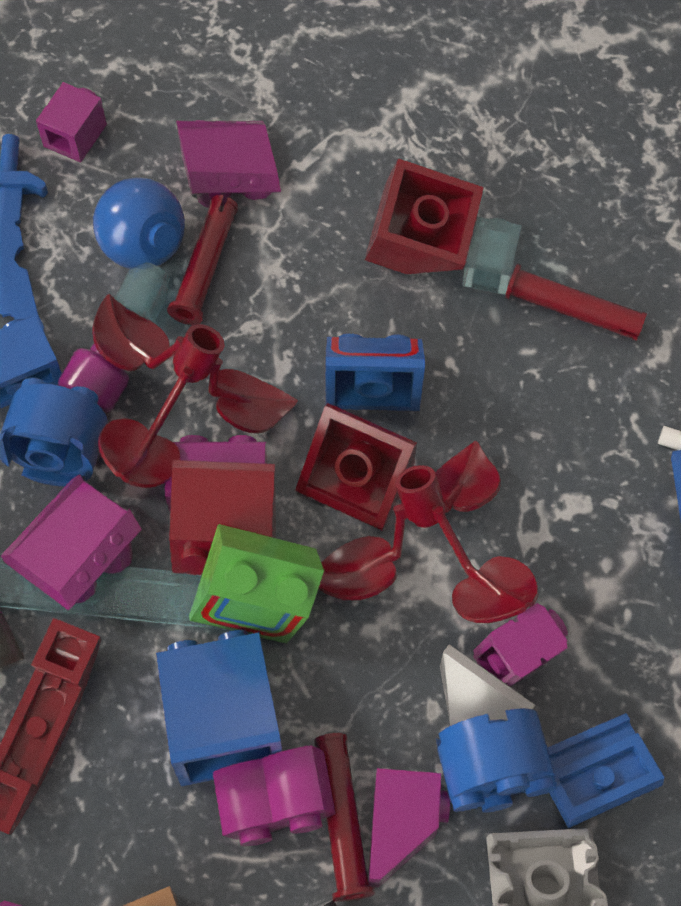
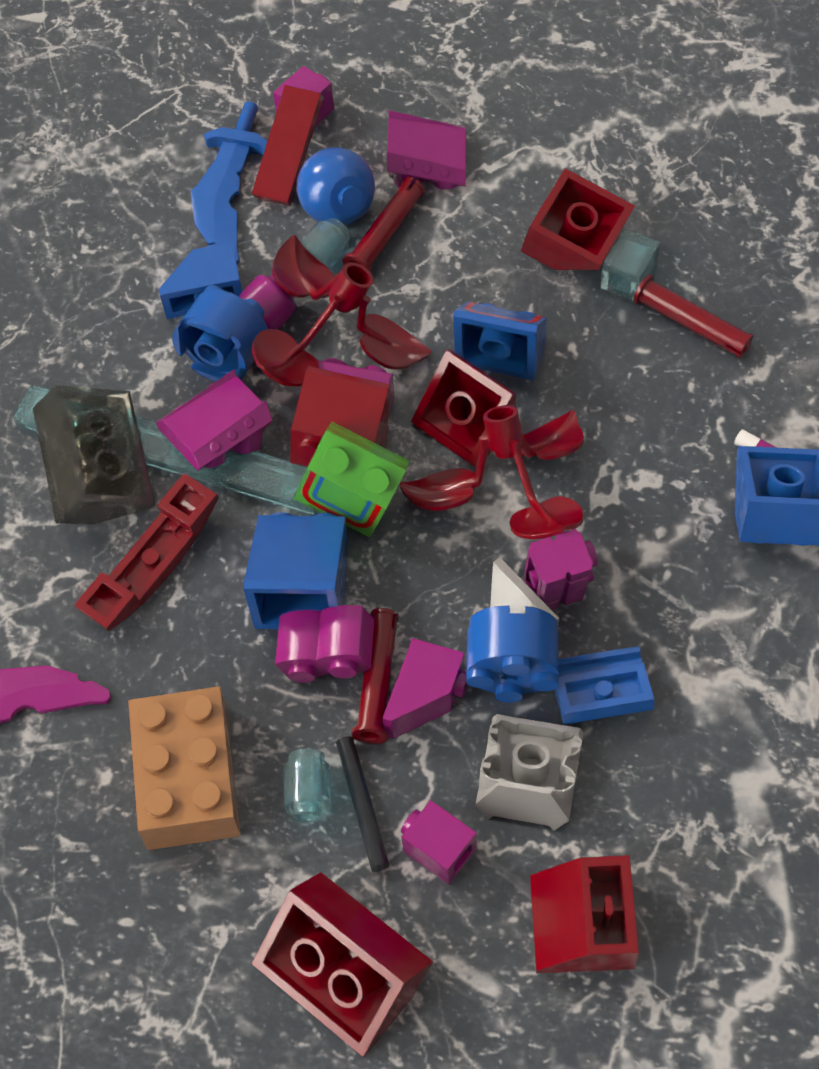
camera: 20 degrees right, 5 degrees down
(68, 181) = (287, 145): none -> dark red tile

